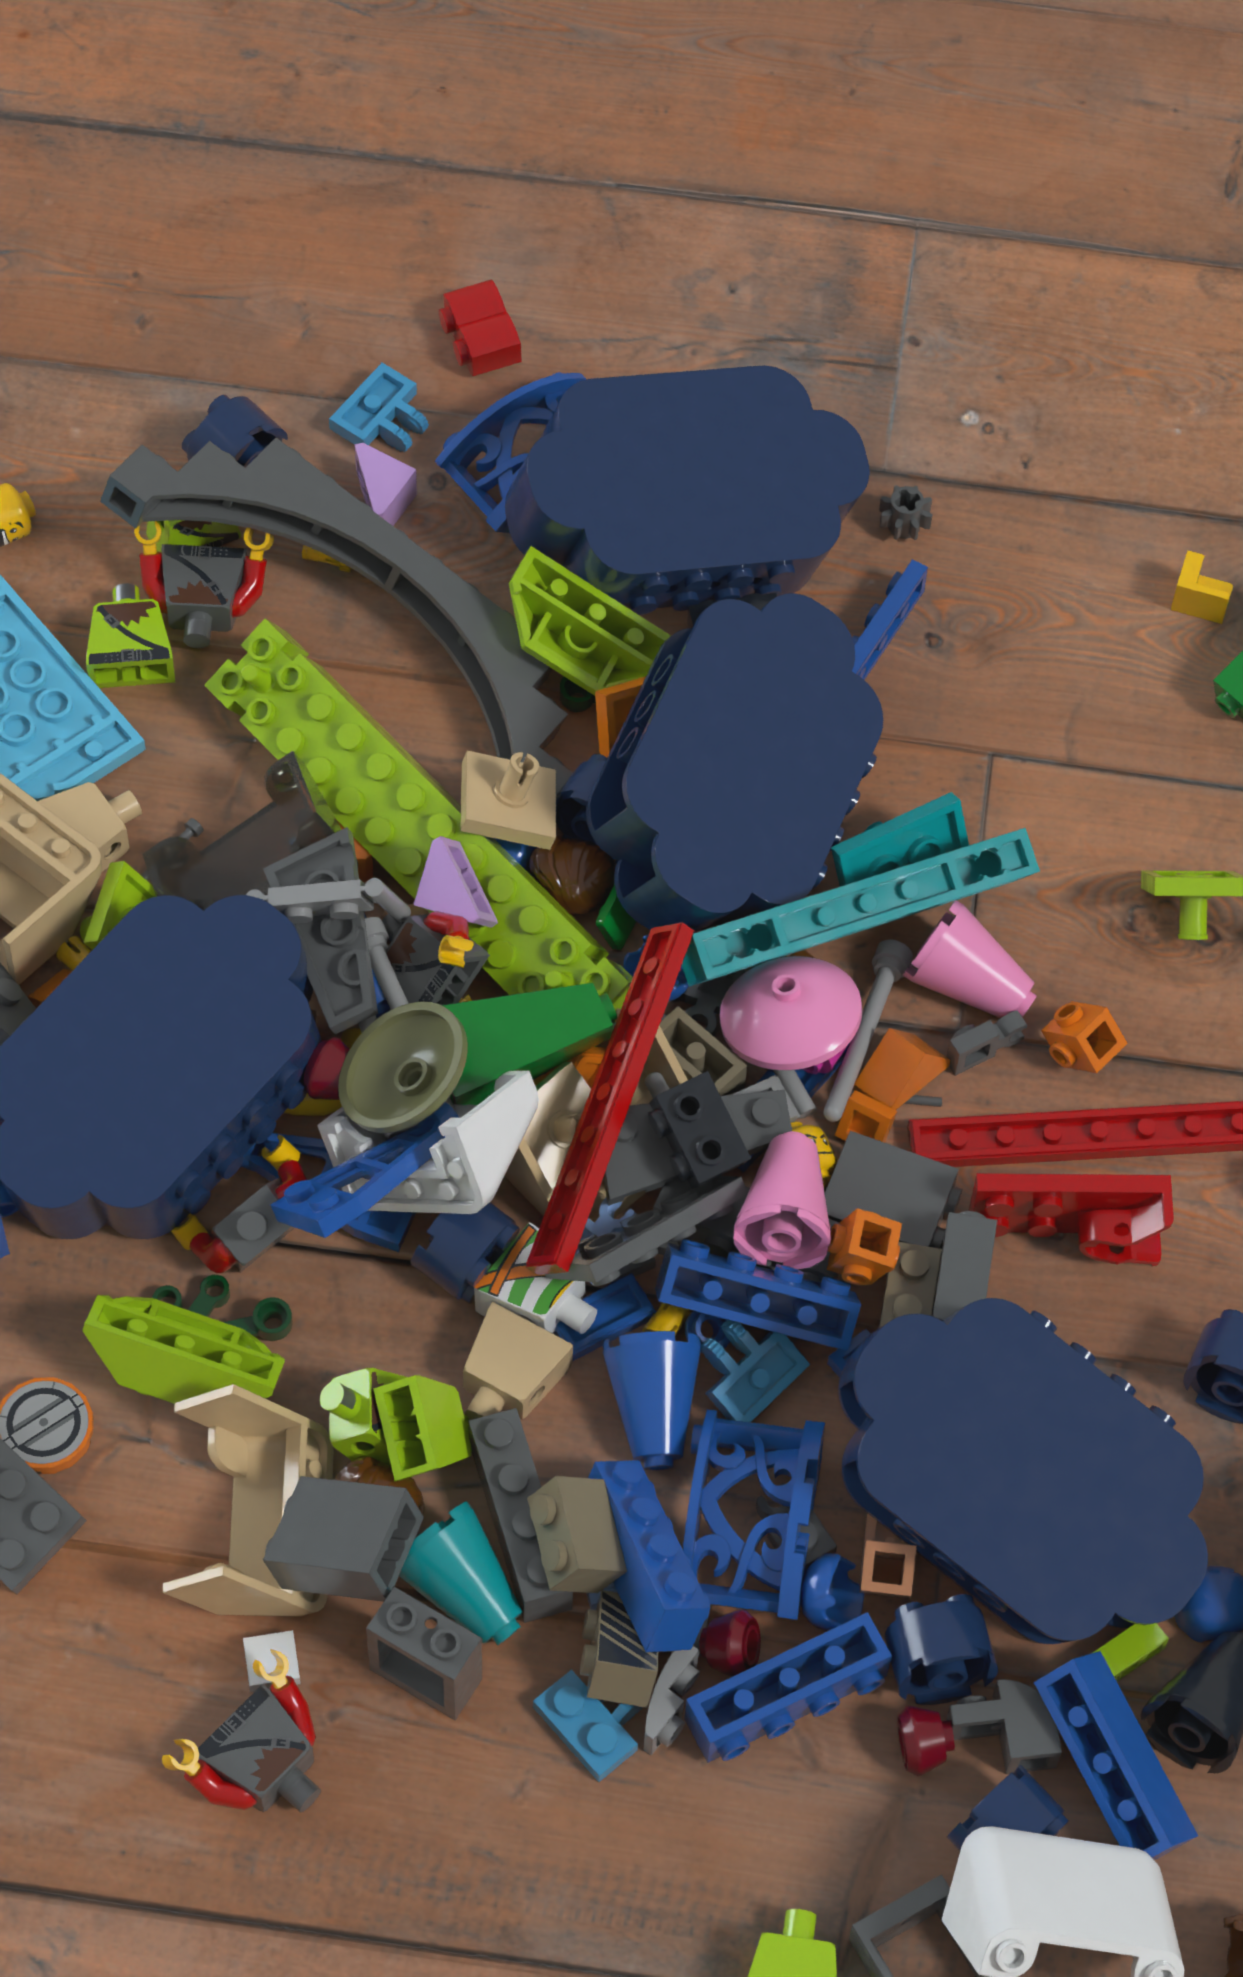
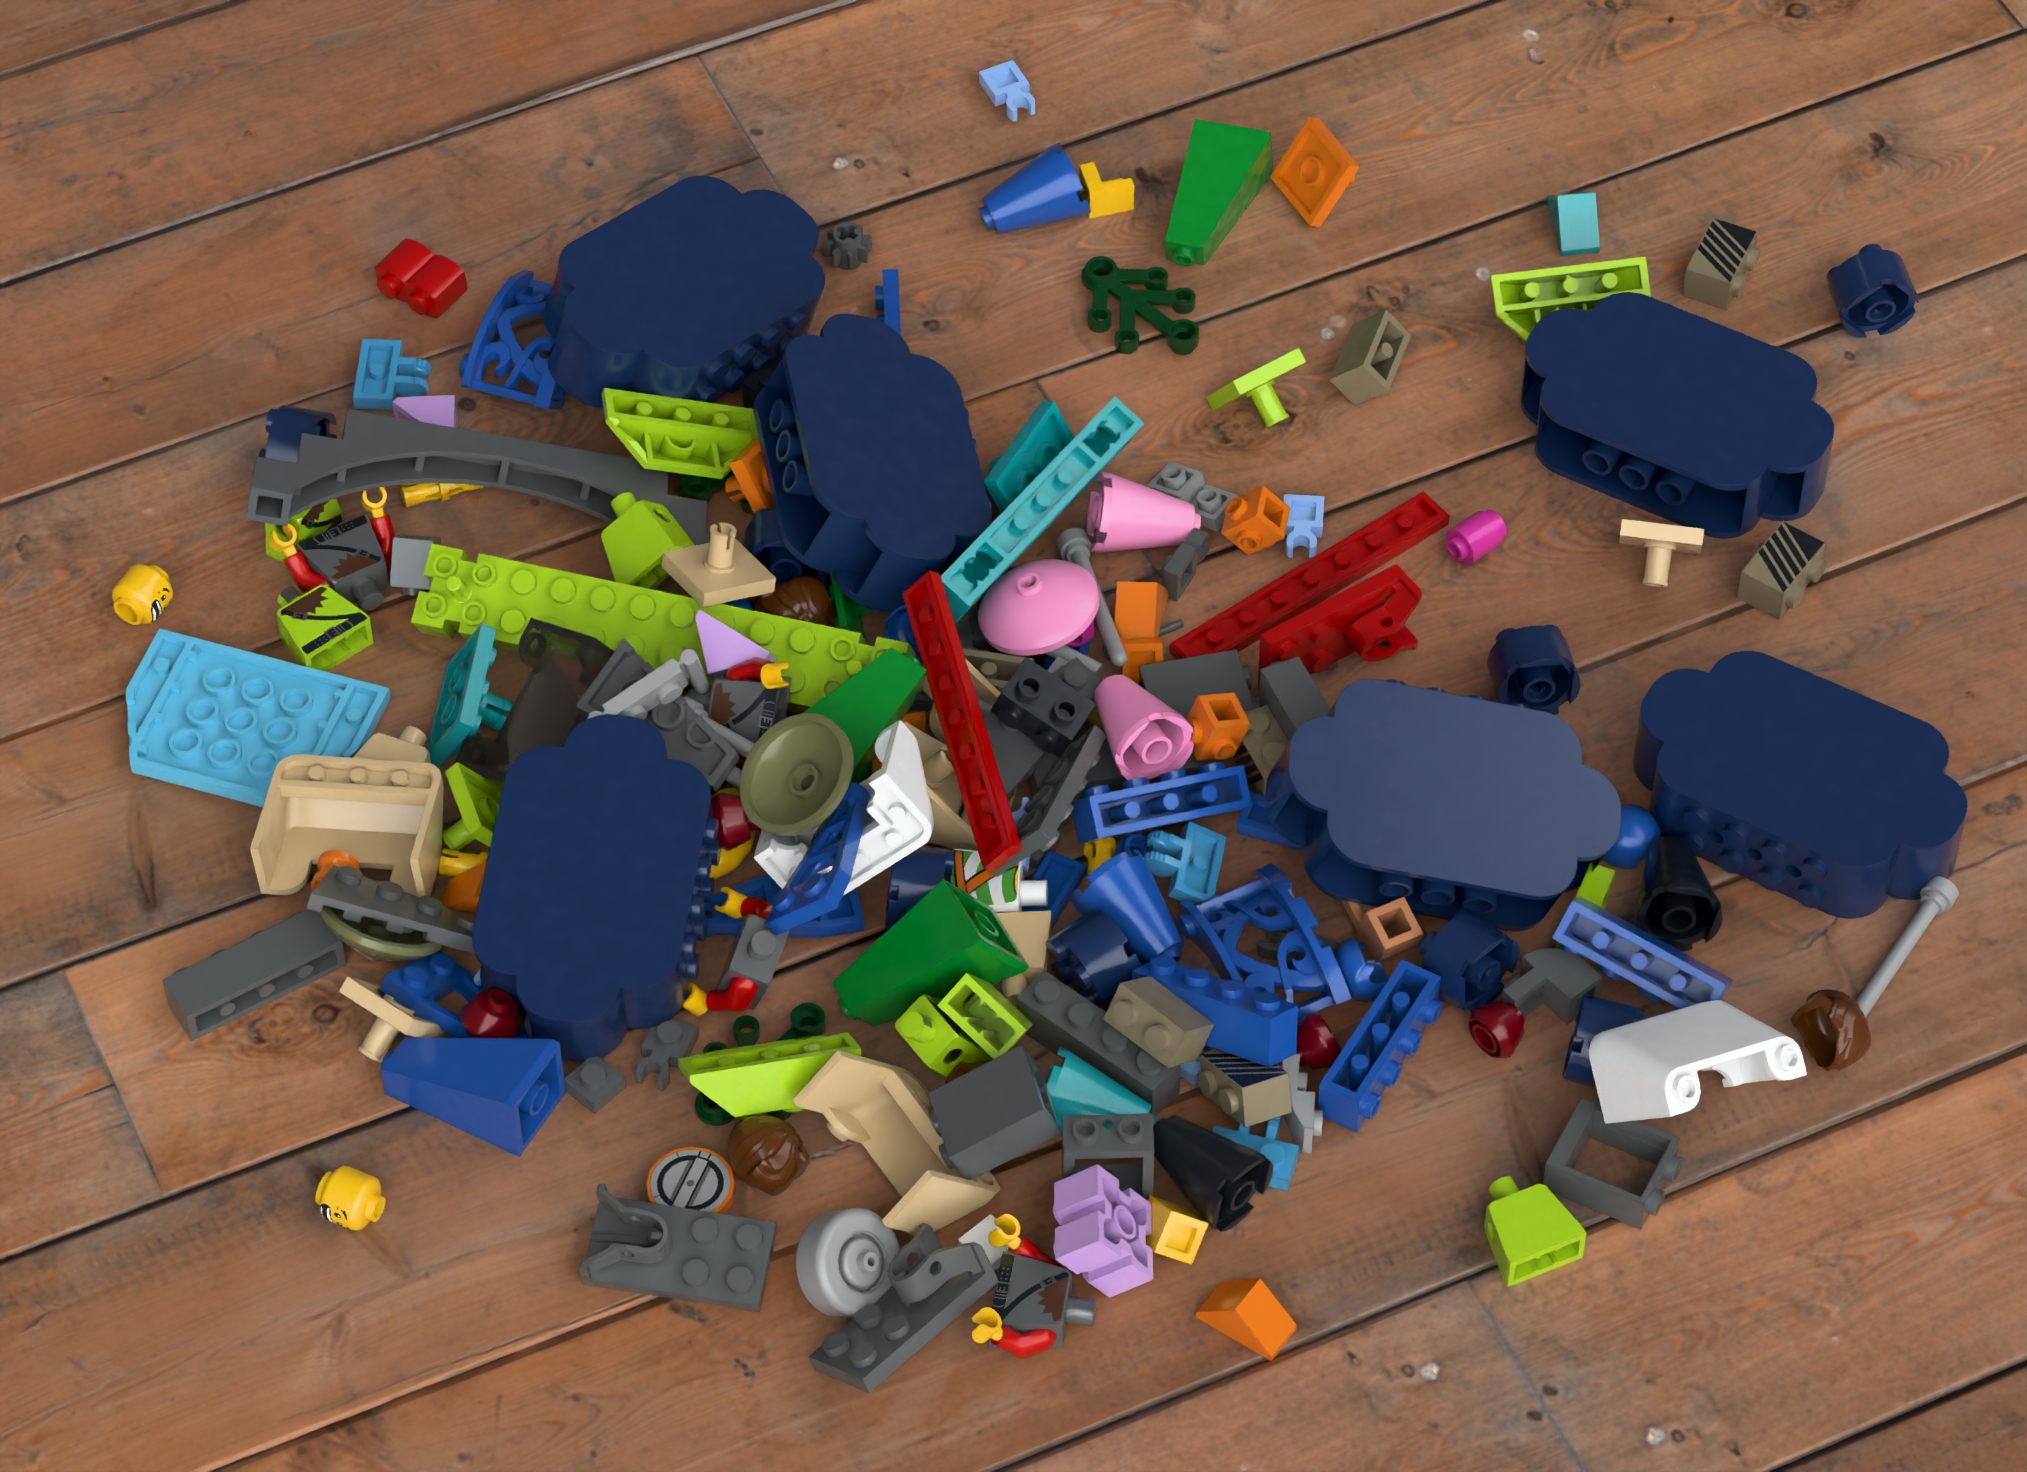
camera: 30 degrees left, 10 degrees down
(37, 1261) = (594, 1083): none -> dark grey plate
(116, 1601) = (845, 1260): none -> light grey wheel
(126, 1435) = (765, 1153): none -> reddish brown hair
(130, 1264) = (663, 1048): none -> dark grey plate
(132, 1690) = (910, 1313): none -> dark grey plate
(201, 794) = (466, 698): none -> teal plate
(250, 611) = (409, 562): none -> brick
(368, 1724) = (1103, 1231): none -> lavender brick
(422, 1325) = (928, 955): none -> green slope
(447, 1757) = (1175, 1230): none -> yellow panel
(456, 1897) = (1249, 1315): none -> orange slope
(470, 720) = (639, 539): none -> lime torso
(521, 1720) = (1211, 1170): none -> black cone
(575, 1422) = (1092, 957): none -> dark blue brick
(1048, 963) = (1190, 487): none -> light grey slope
(1125, 559) = (1036, 194): none -> blue cone
(1136, 1063) = (1304, 522): none -> light blue plate
(1148, 729) = (1104, 276): none -> dark green plant
(1186, 426) = (1009, 86): none -> light blue plate

